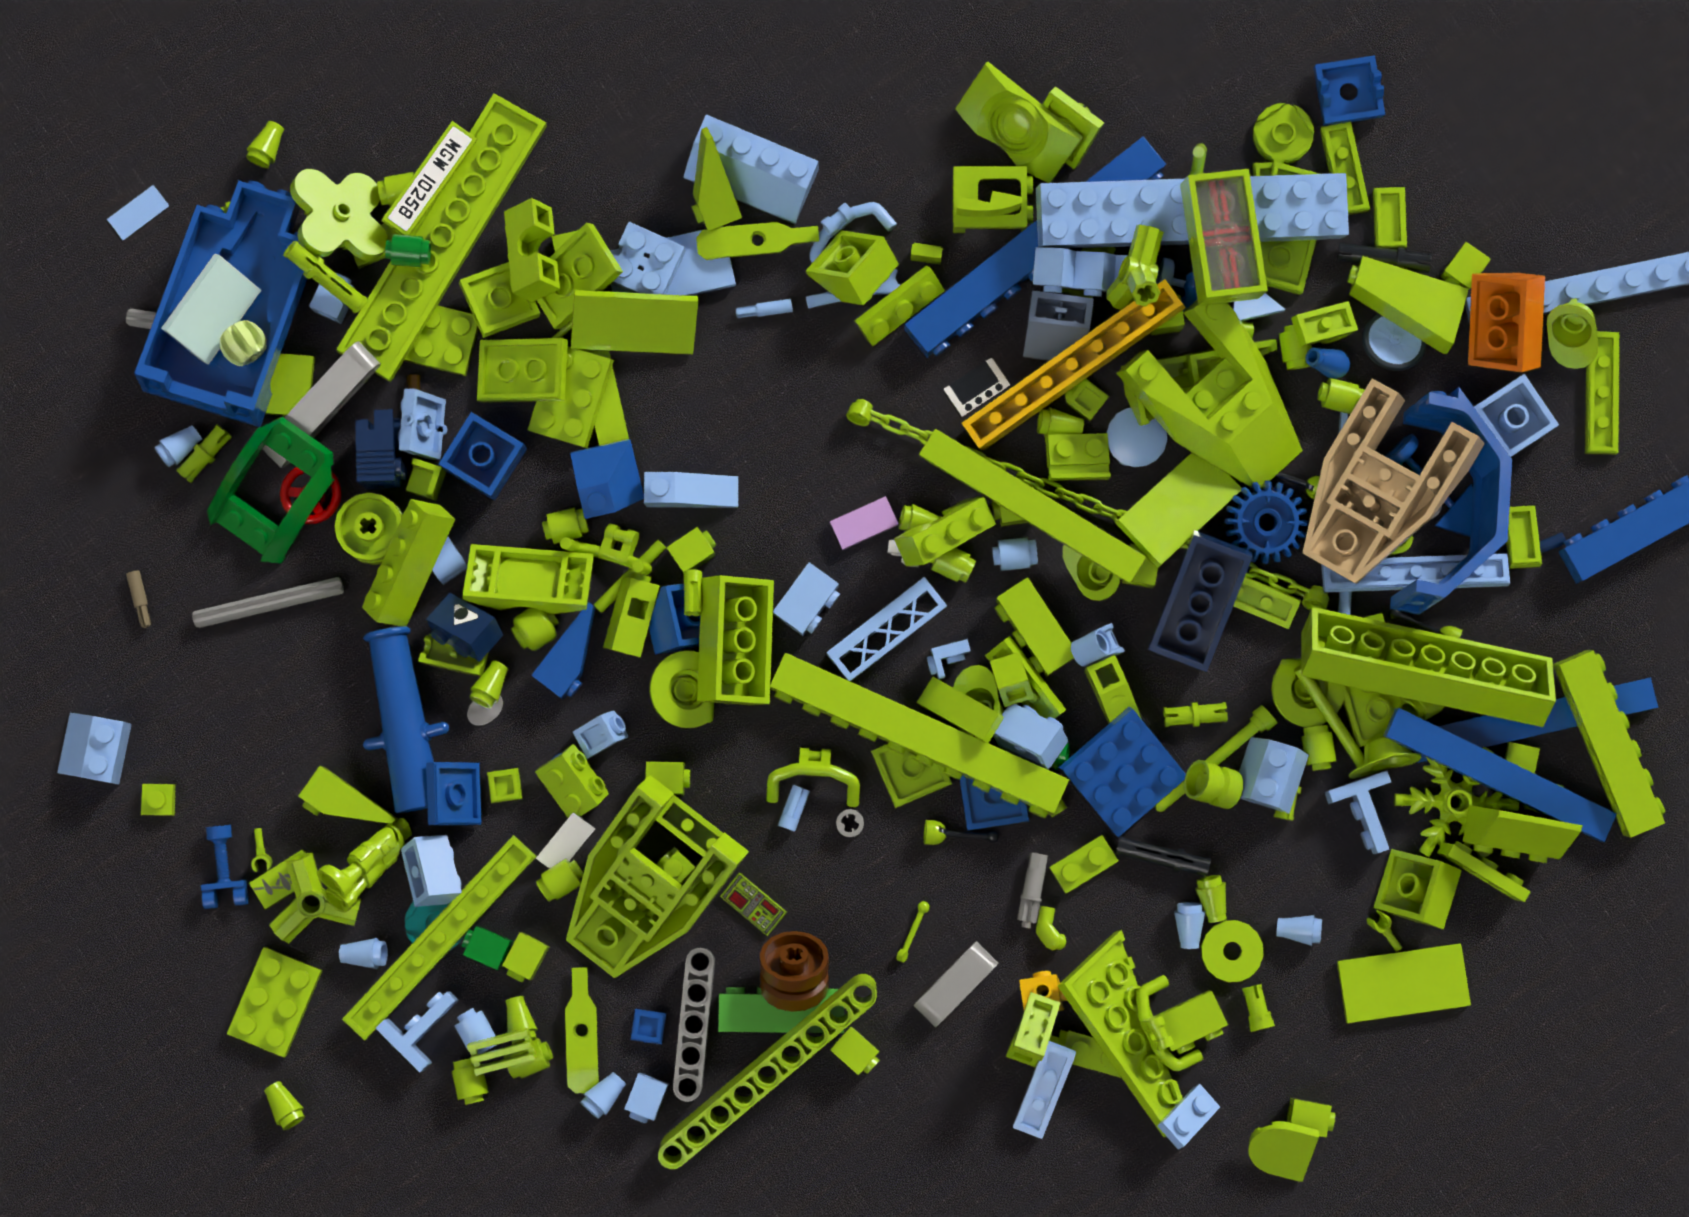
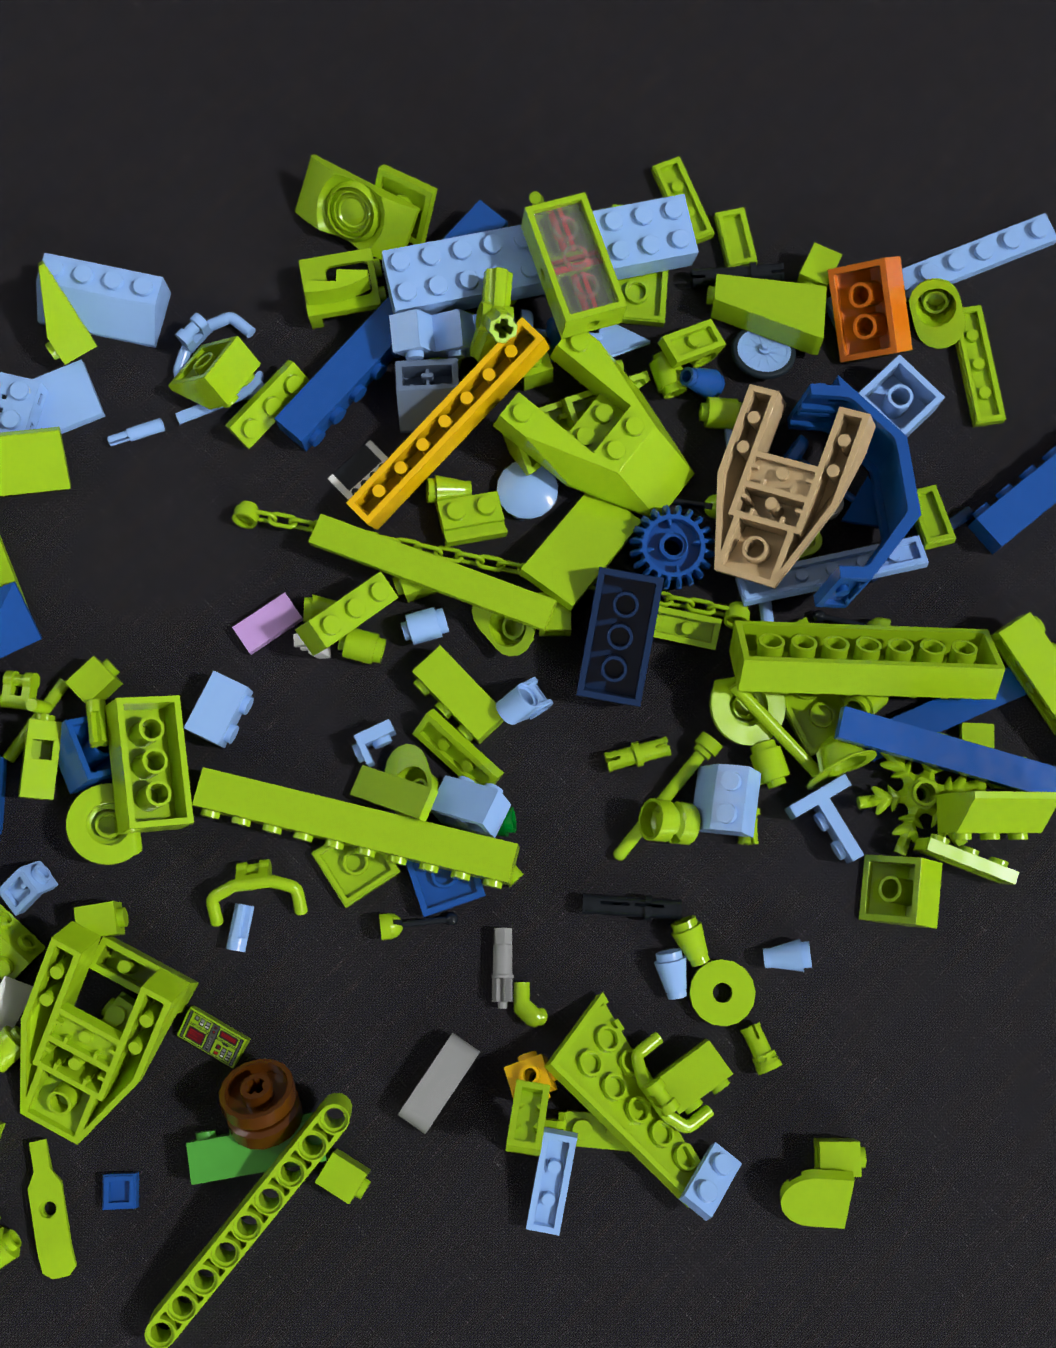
camera: 10 degrees left, 5 degrees down
(603, 1095) = (80, 1277): light blue cone -> none
(646, 1098) = (126, 1271): light blue brick -> none
(685, 1037) = (160, 1196): light grey beam -> none
(690, 490) = (83, 622): light blue slope -> none
(737, 240) = (99, 370): lime piece -> none
(840, 826) = (309, 926): light grey bush -> none
(878, 621) = (299, 719): light blue fence -> none
(923, 907) = (379, 1061): lime hinge -> none
(926, 253) = (287, 349): lime tile -> none
(1011, 679) = (441, 752): lime panel -> none
(1083, 864) = (551, 930): lime plate -> none
(1085, 399) = (469, 461): lime tile -> none
(1110, 687) = (555, 757): lime slope -> none
(1123, 771) = (574, 825): blue plate -> none
(1283, 133) = (616, 179): lime tile -> none
(1364, 76) = (677, 110): blue piece -> none
(1383, 927) = (873, 936): lime hand -> none
(1403, 983) = (906, 993): lime tile -> none

